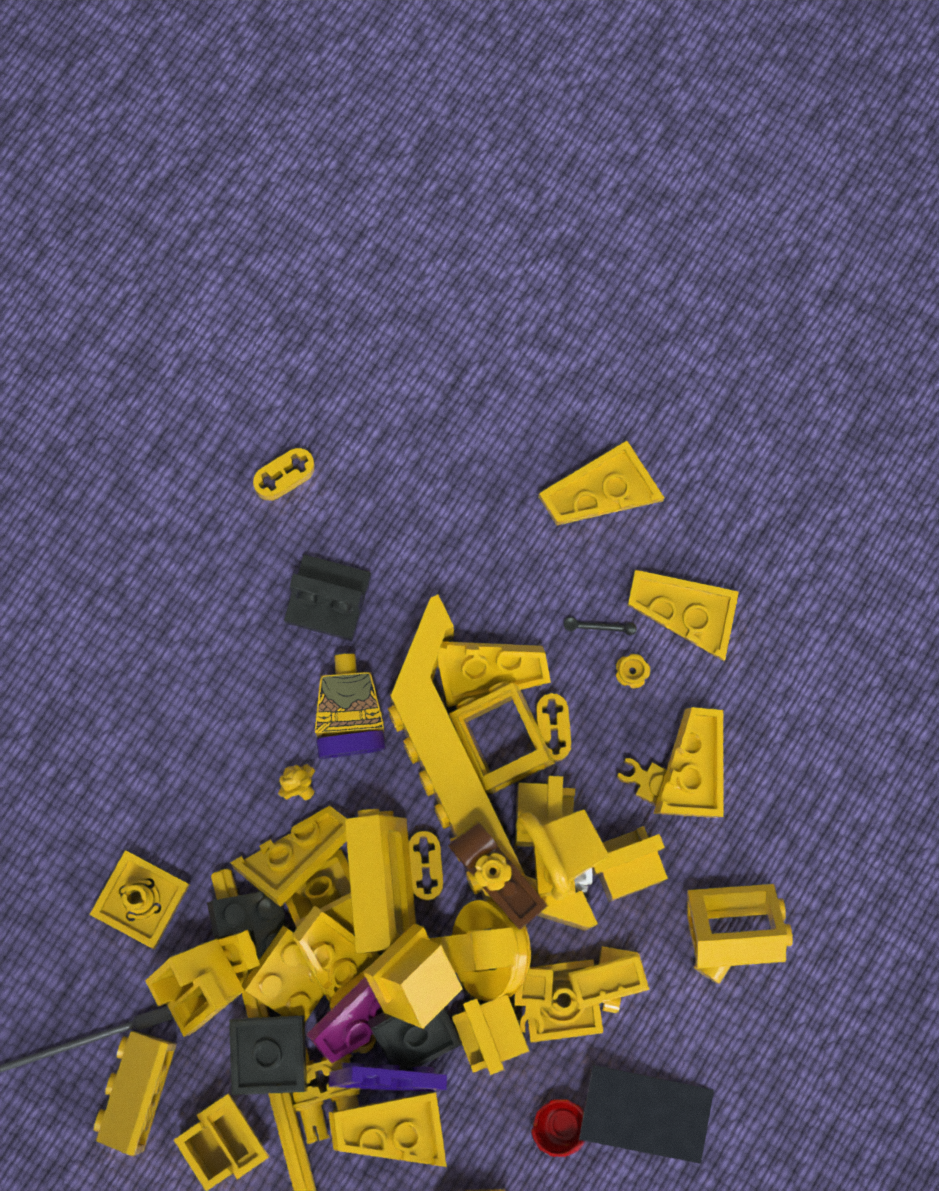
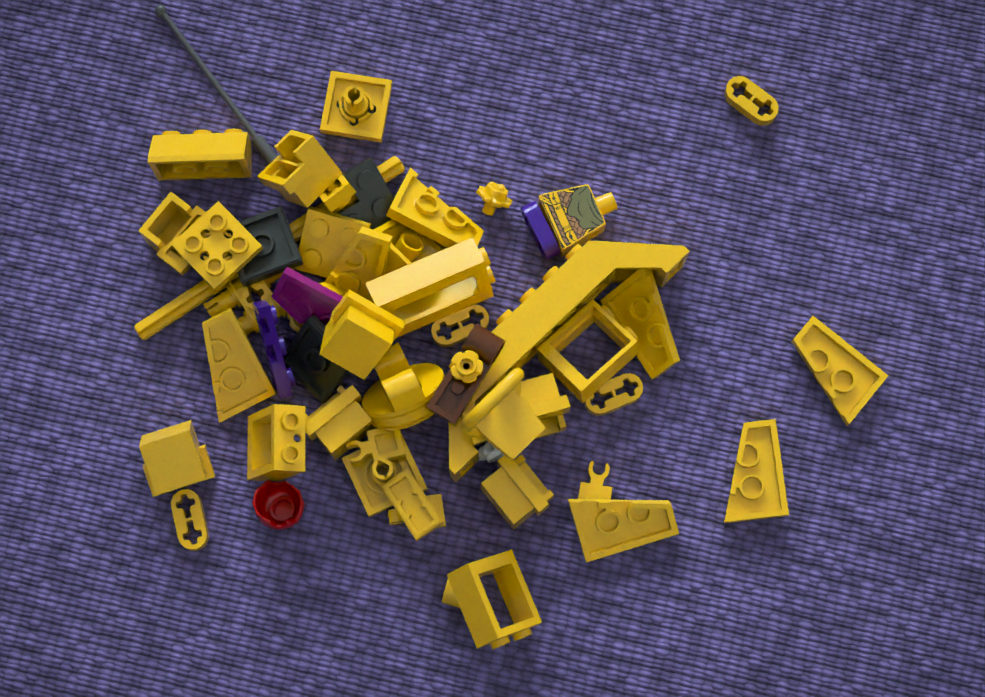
camera: 75 degrees right, 0 degrees up
(254, 1106) = (221, 264): none -> yellow plate
(327, 597) = (658, 171): pearl dark grey bracket -> none
(512, 1105) = (271, 443): none -> yellow window
(572, 624) = (709, 382): pearl dark grey hinge -> none
(632, 661) = (678, 446): yellow plate -> none
(646, 1114) = (312, 574): black sticker -> none

